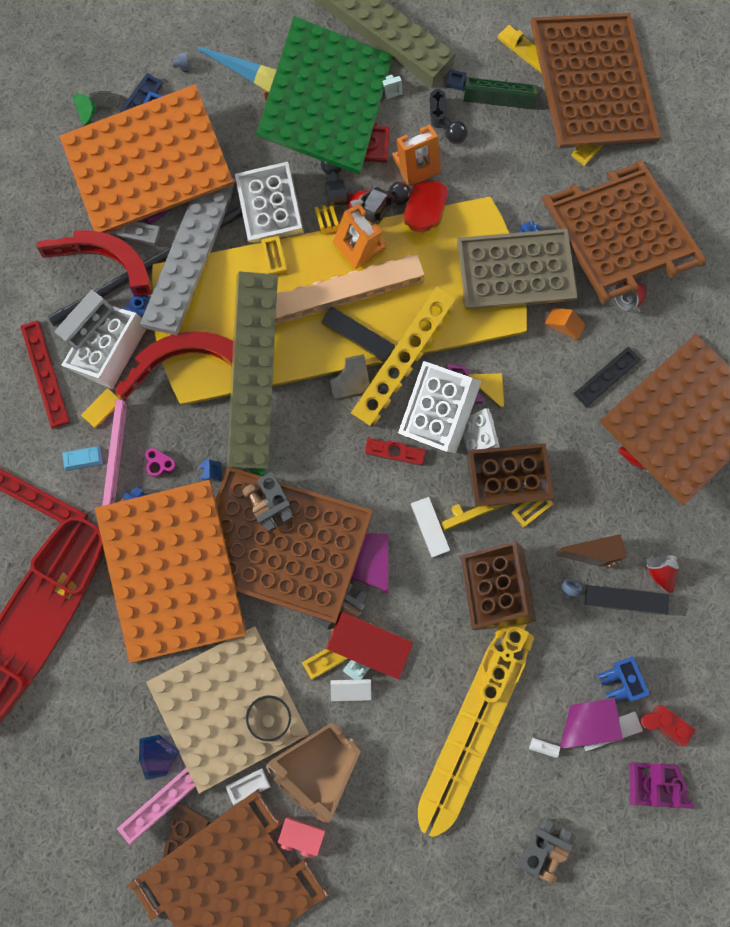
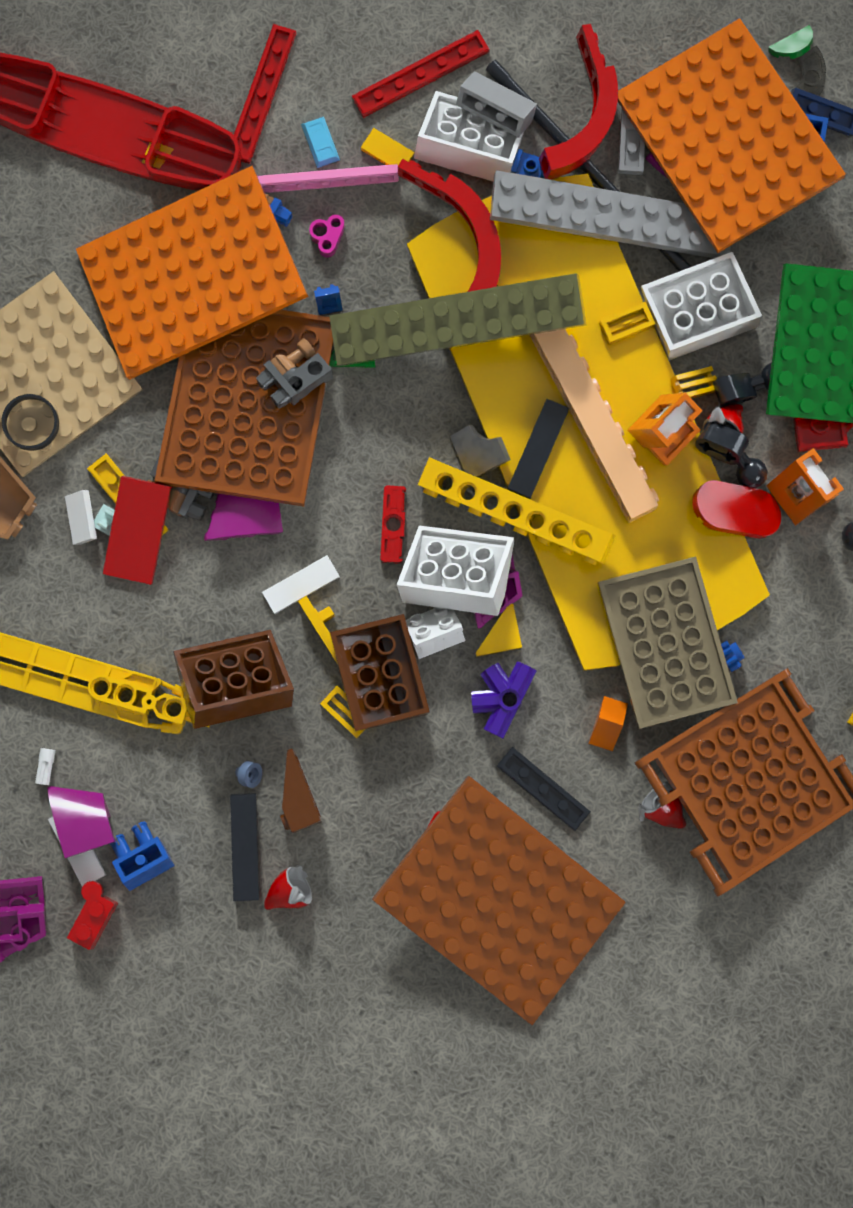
camera: 80 degrees right, 5 degrees up
(538, 399) = (499, 686): none -> dark purple piece

